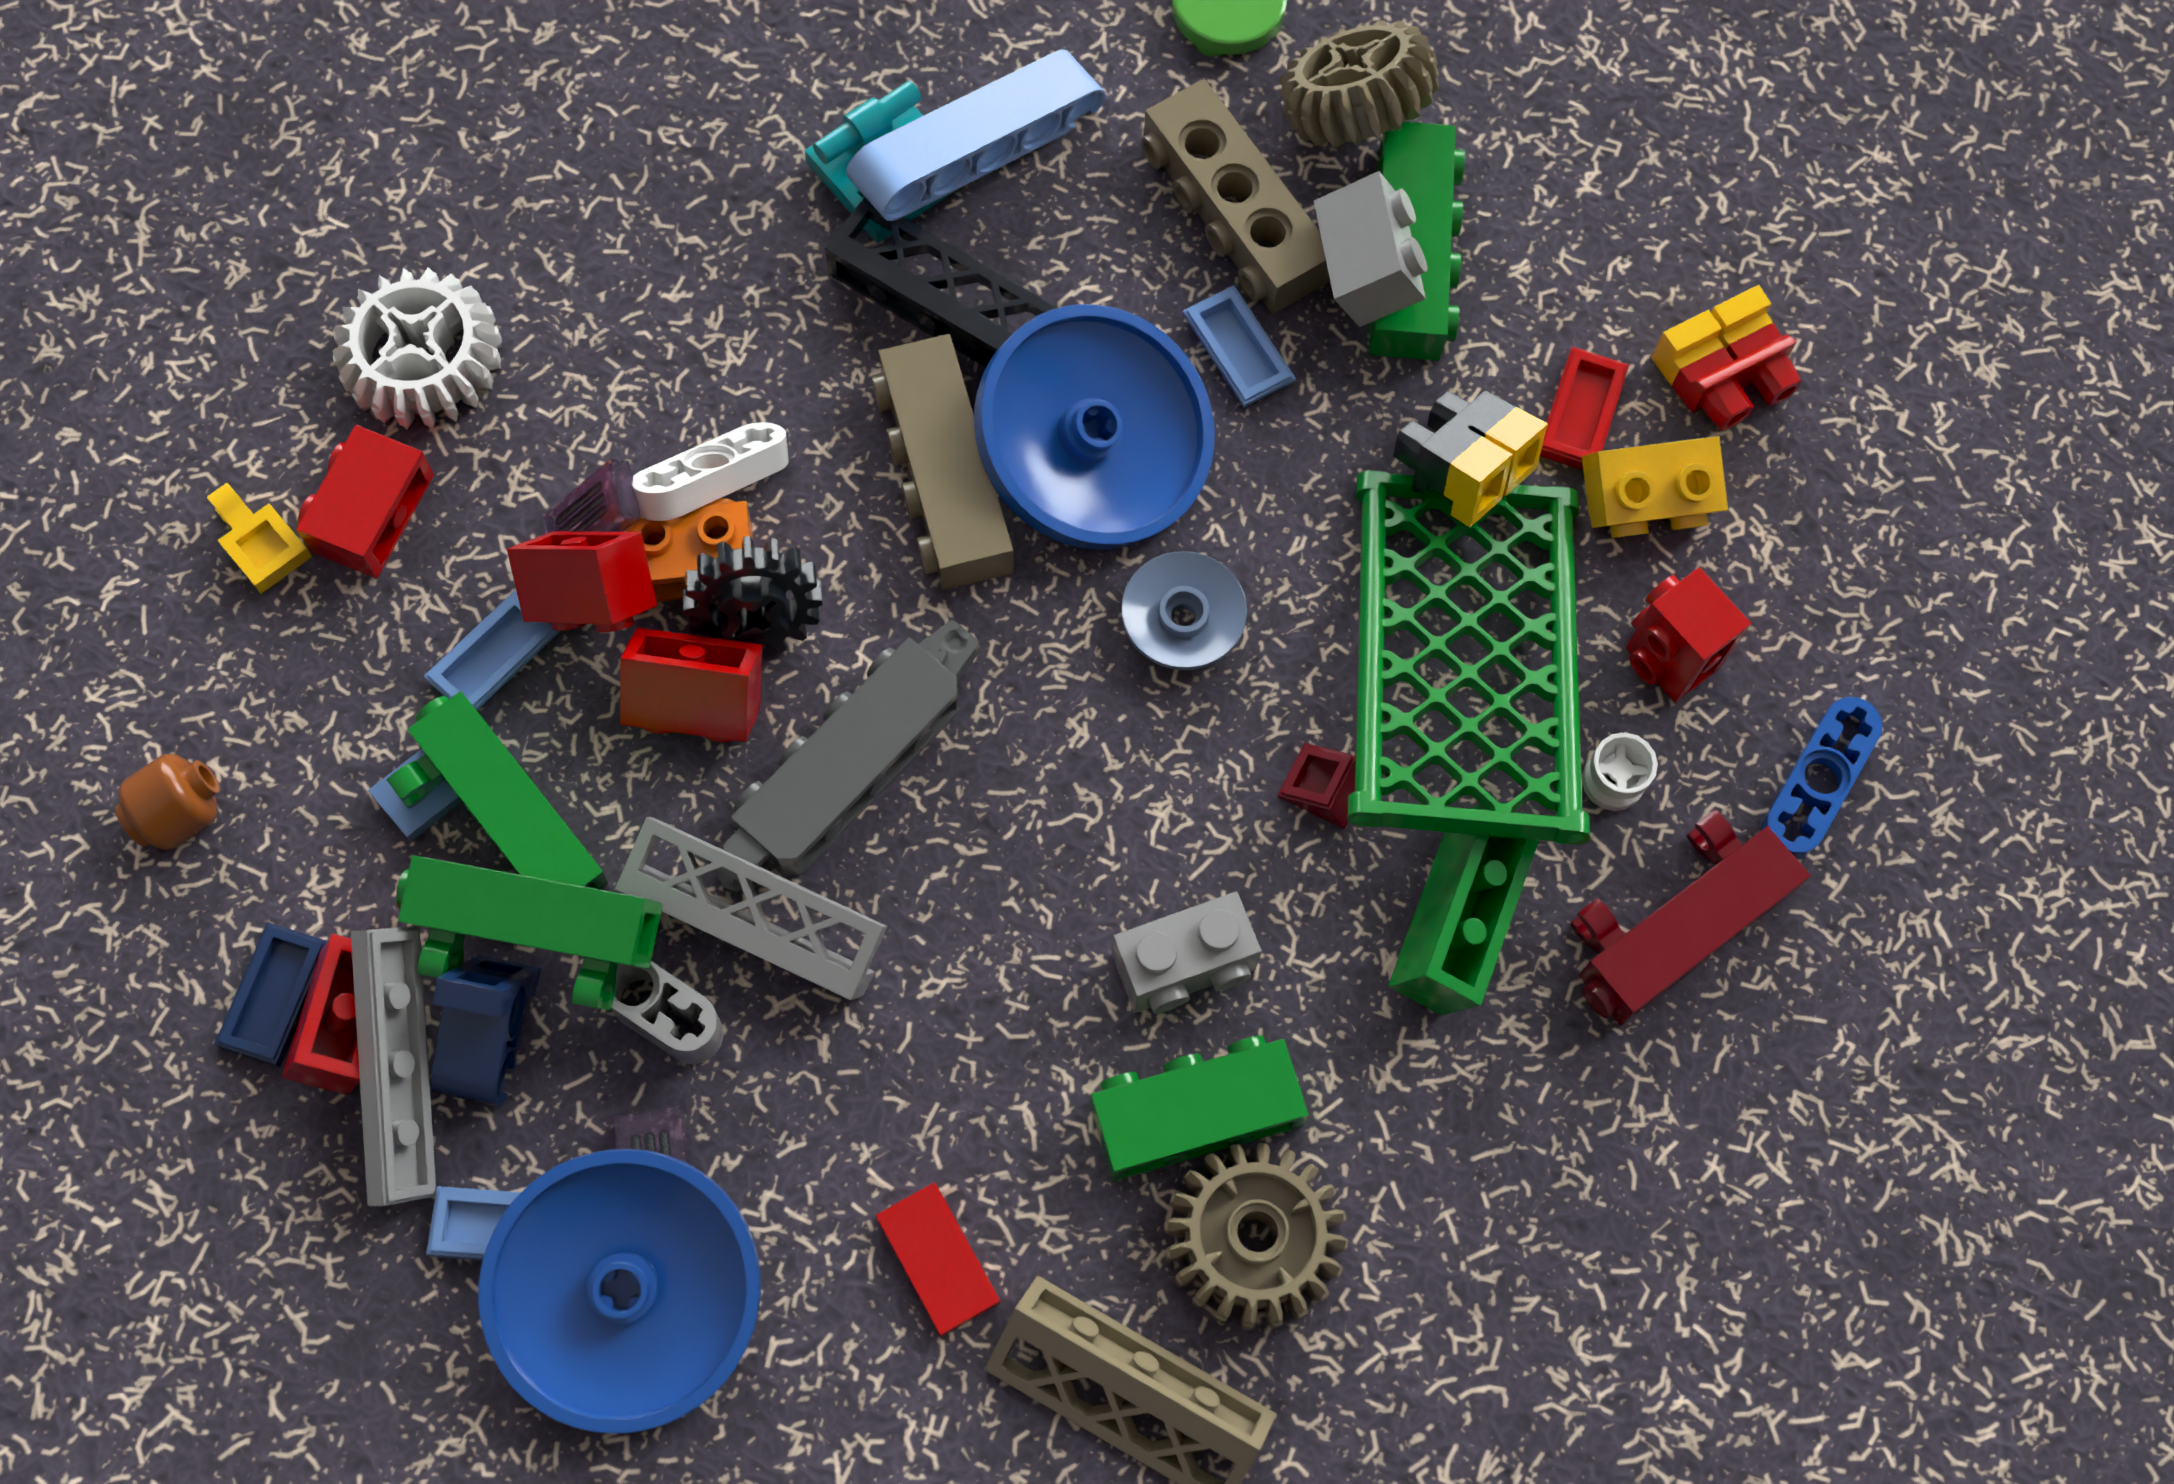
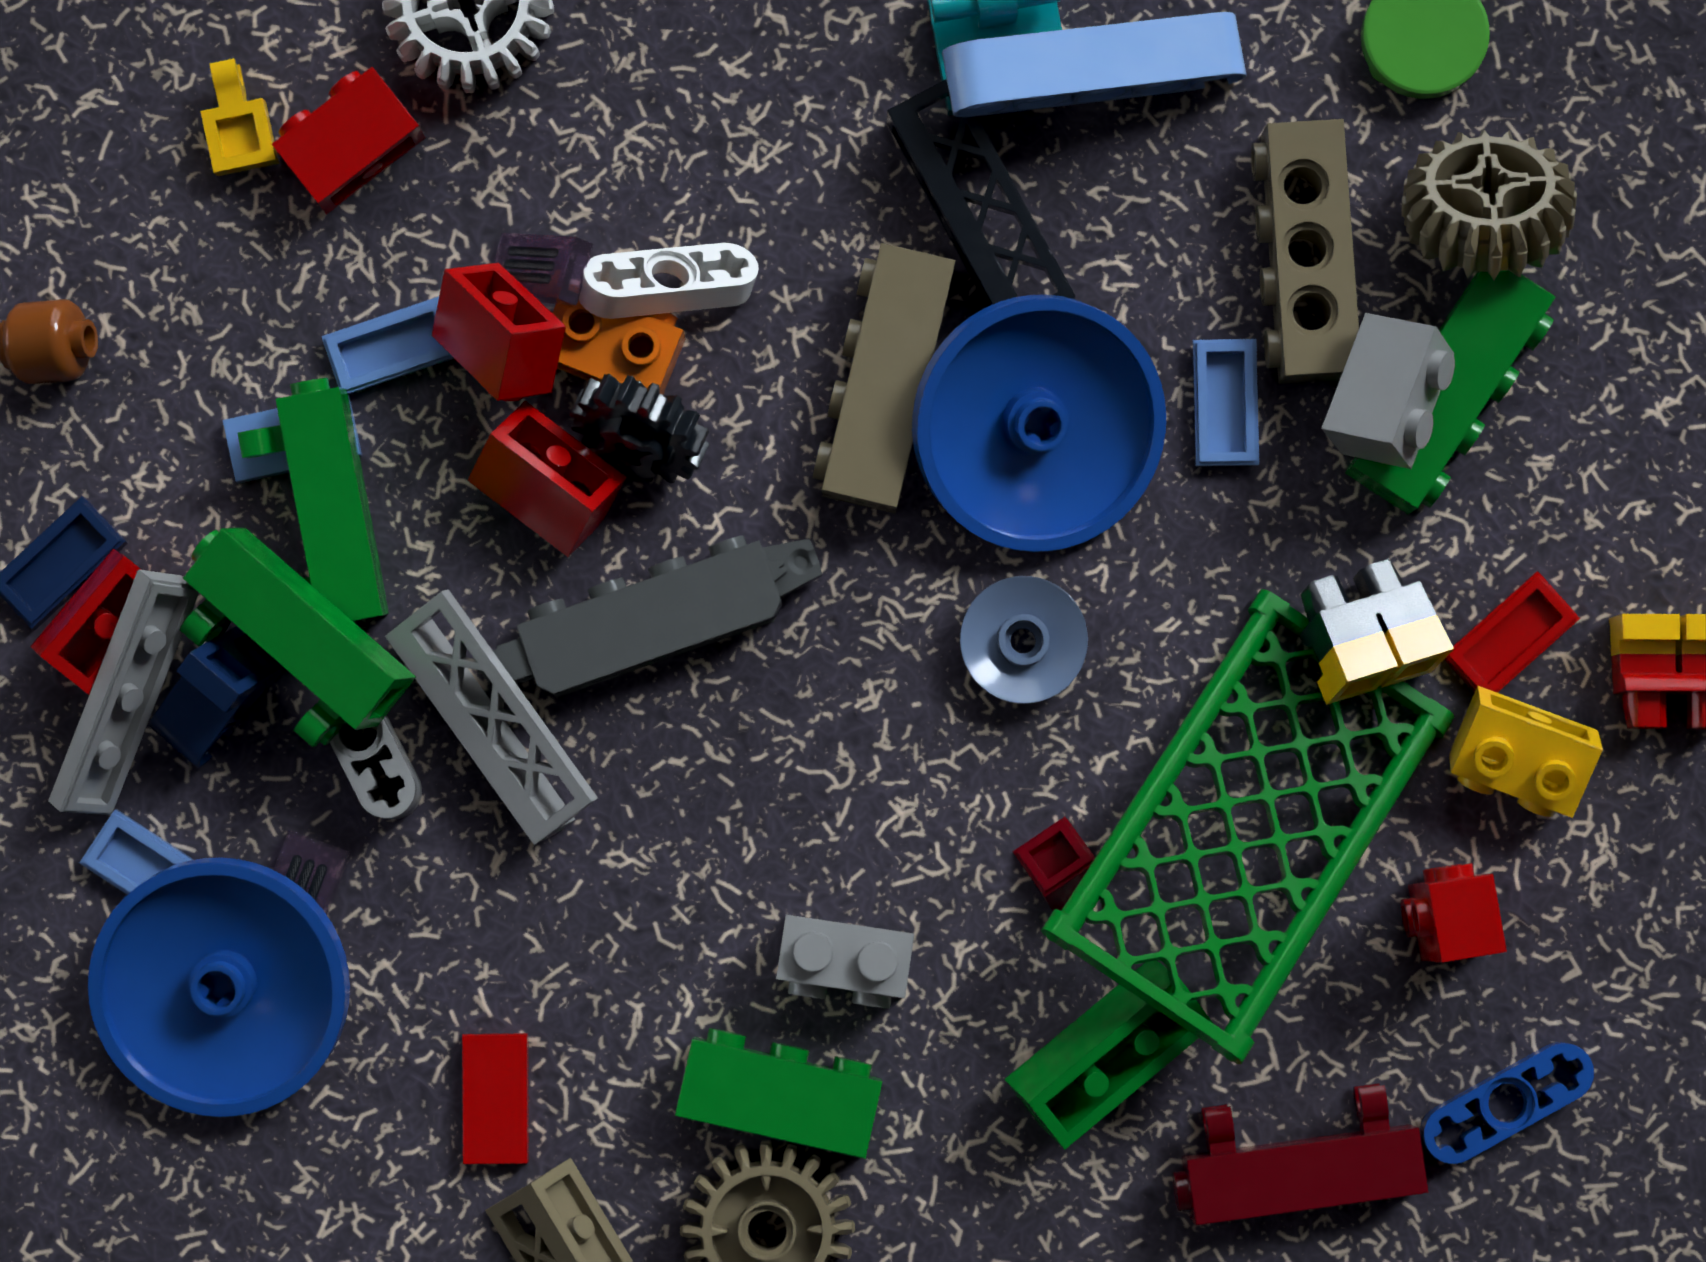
camera: 30 degrees right, 15 degrees up
(1624, 759) = (1334, 1005): white wheel -> none

